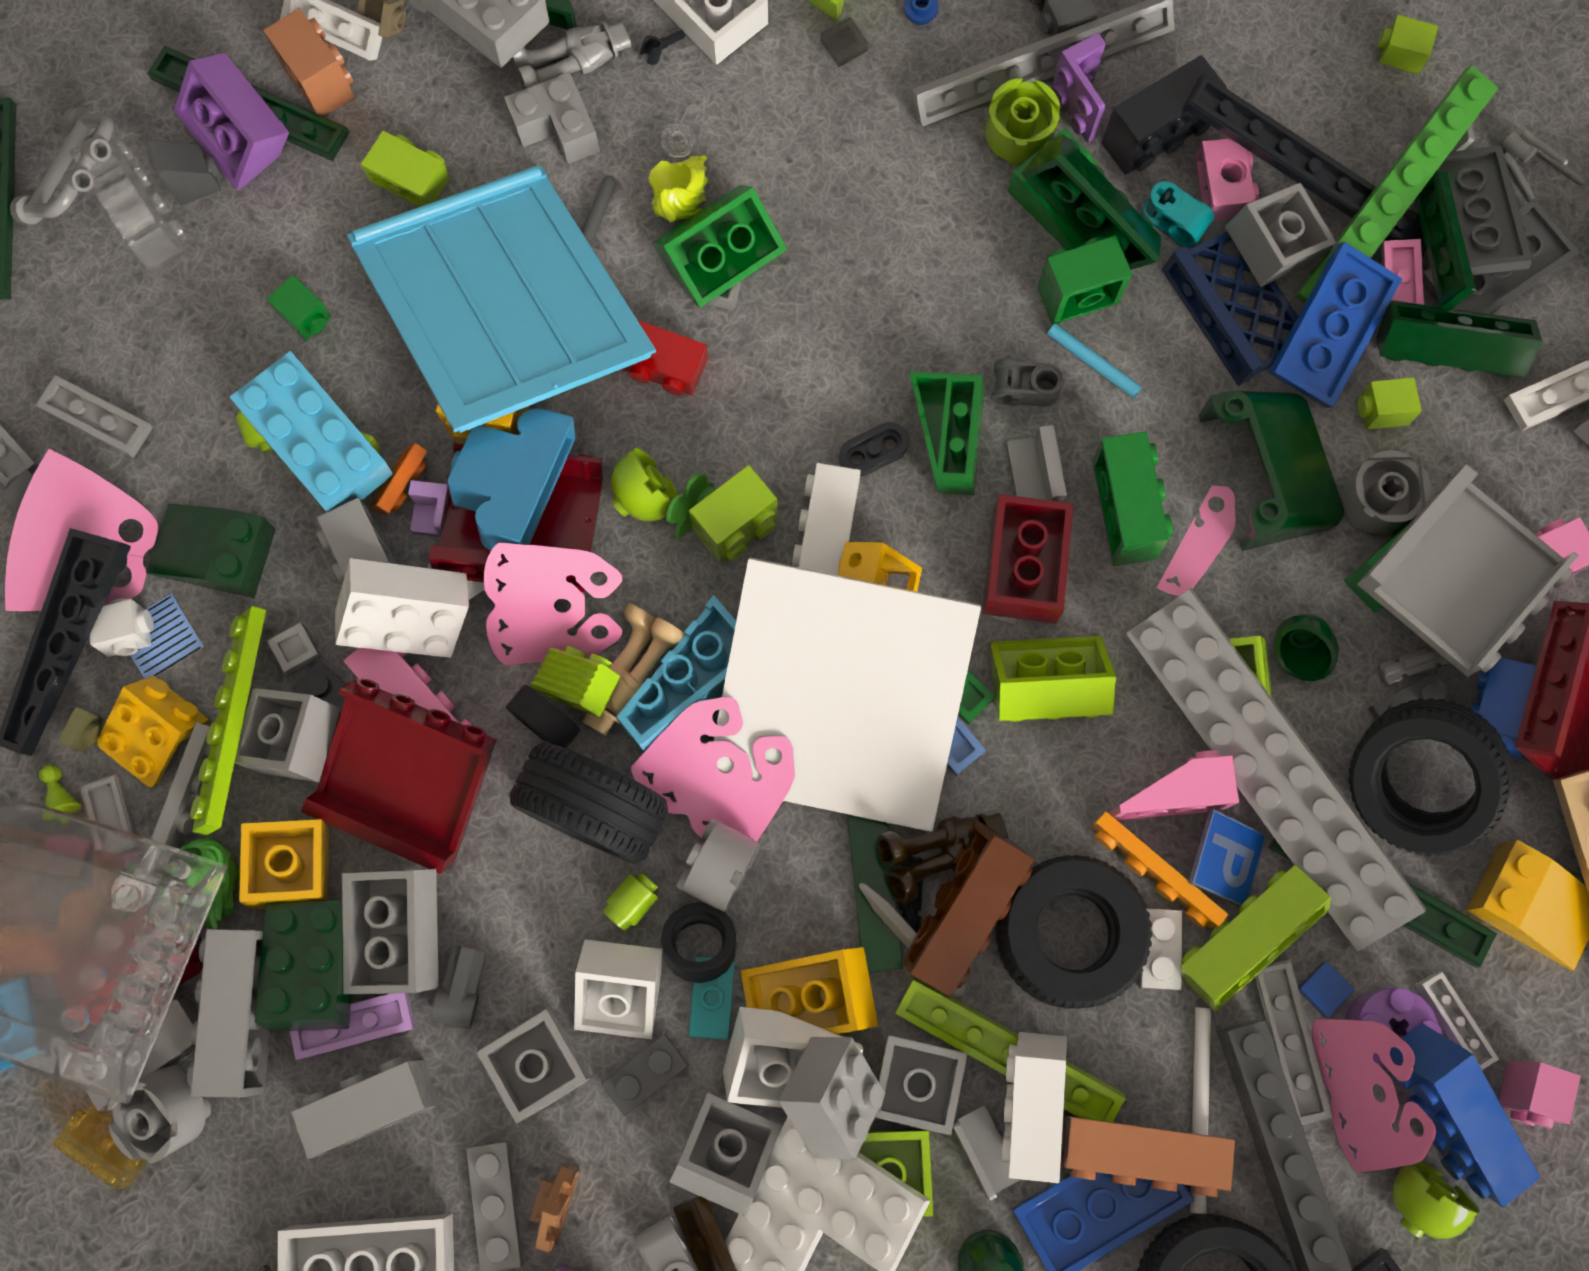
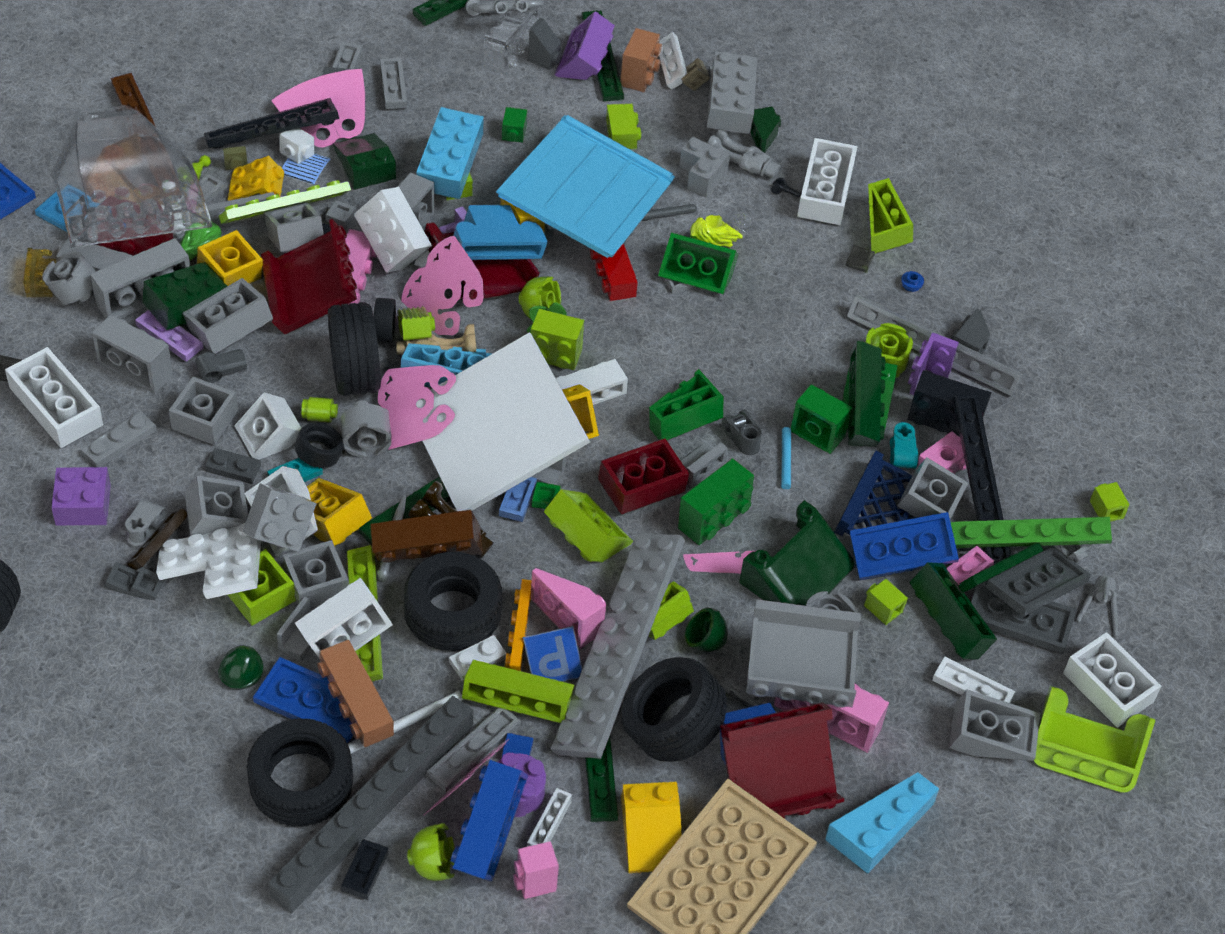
camera: 50 degrees right, 25 degrees down
(407, 467) = (448, 206): orange plate -> none
(552, 1206) = (136, 457): medium nougat plate -> none
(871, 448) = (649, 386): black plate -> none

